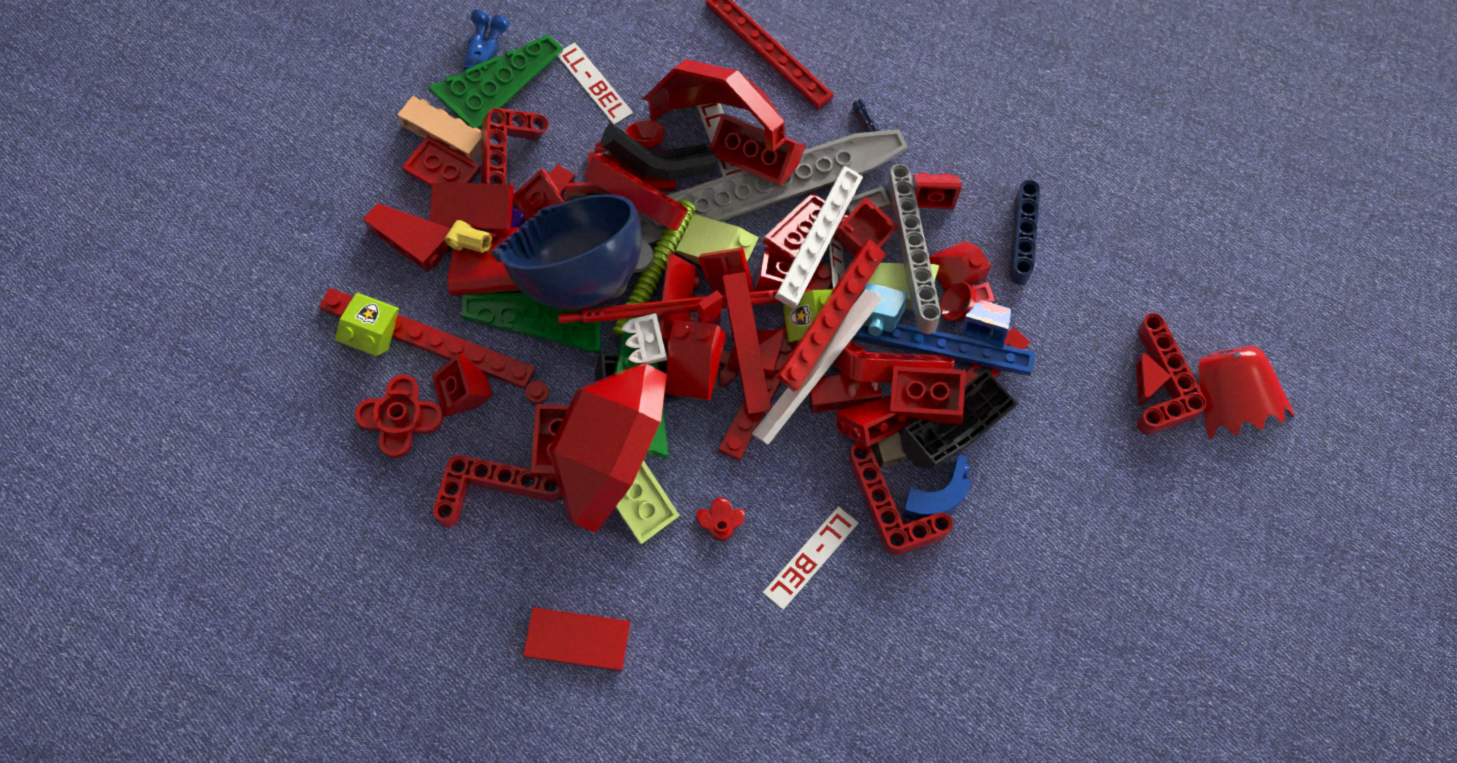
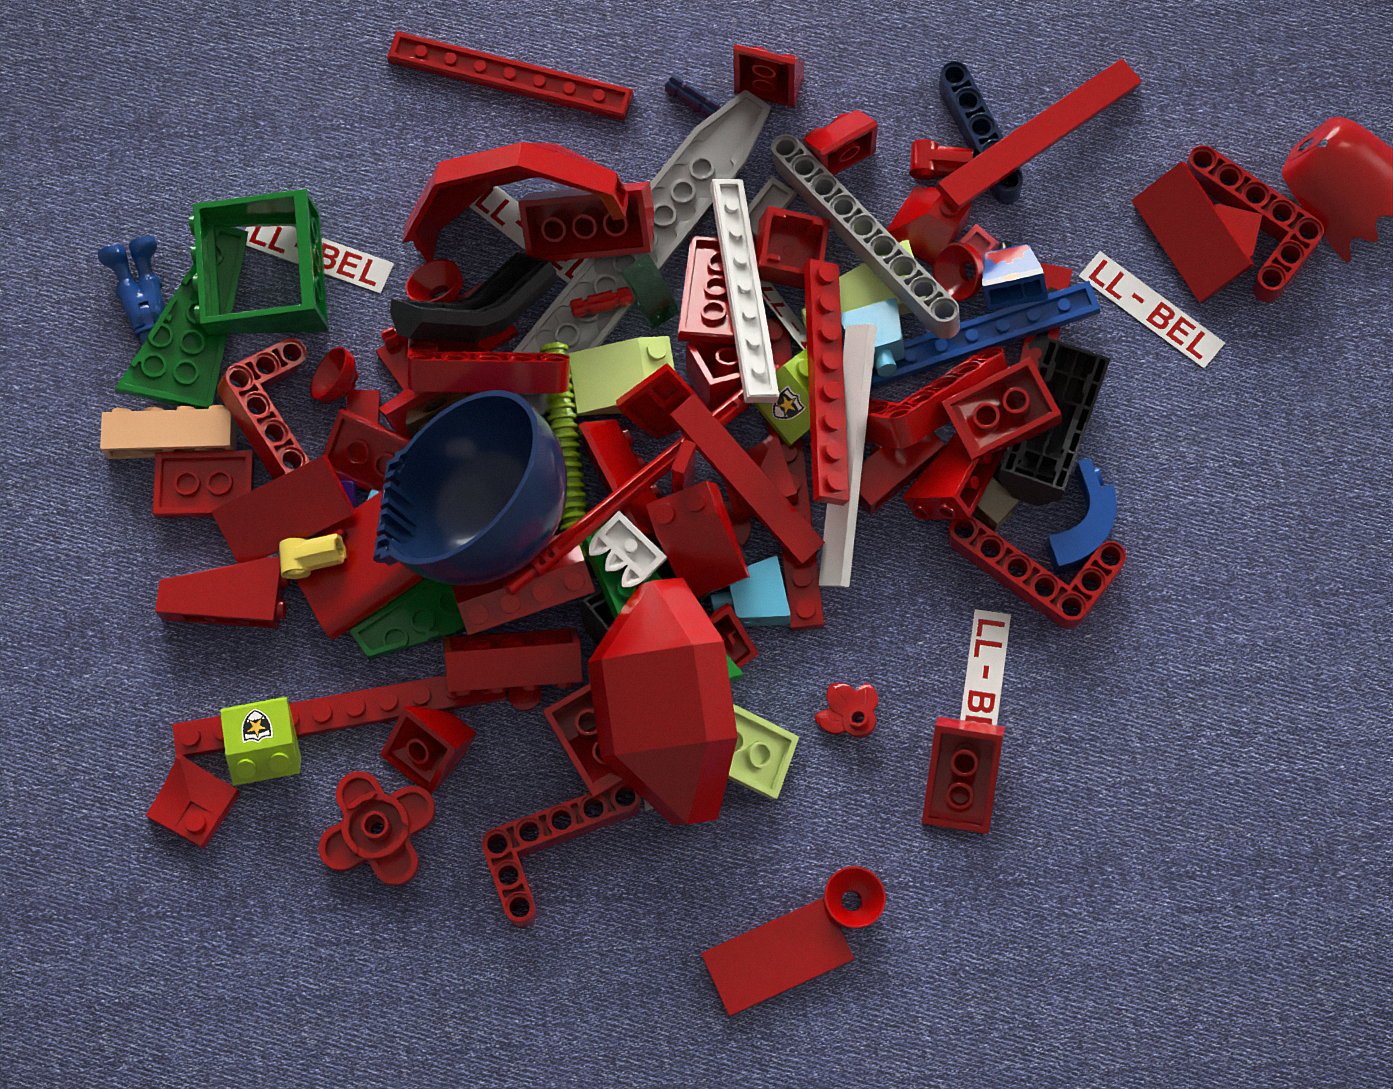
camera: 25 degrees left, 5 degrees up
(309, 338) = (192, 802): none -> red plate
(539, 365) = (512, 660): none -> red slope
(554, 152) = (334, 376): none -> red piece
(582, 83) = (262, 210): none -> green windscreen
(593, 337) = (491, 605): none -> red slope
(651, 620) = (866, 886): none -> red piece
(677, 431) = (736, 640): none -> red slope
(710, 418) = (758, 599): none -> medium azure torso
(733, 197) = (601, 302): none -> red axle
(763, 599) = (962, 774): none -> red slope
(765, 207) = (650, 291): none -> clear green slope
(917, 126) = (767, 74): none -> red slope
(984, 230) = (930, 159): none -> red piece
(1059, 250) = (1038, 134): none -> red tile
(1065, 395) = (1152, 309): none -> white sticker
(1119, 362) = (1192, 232): none -> red tile

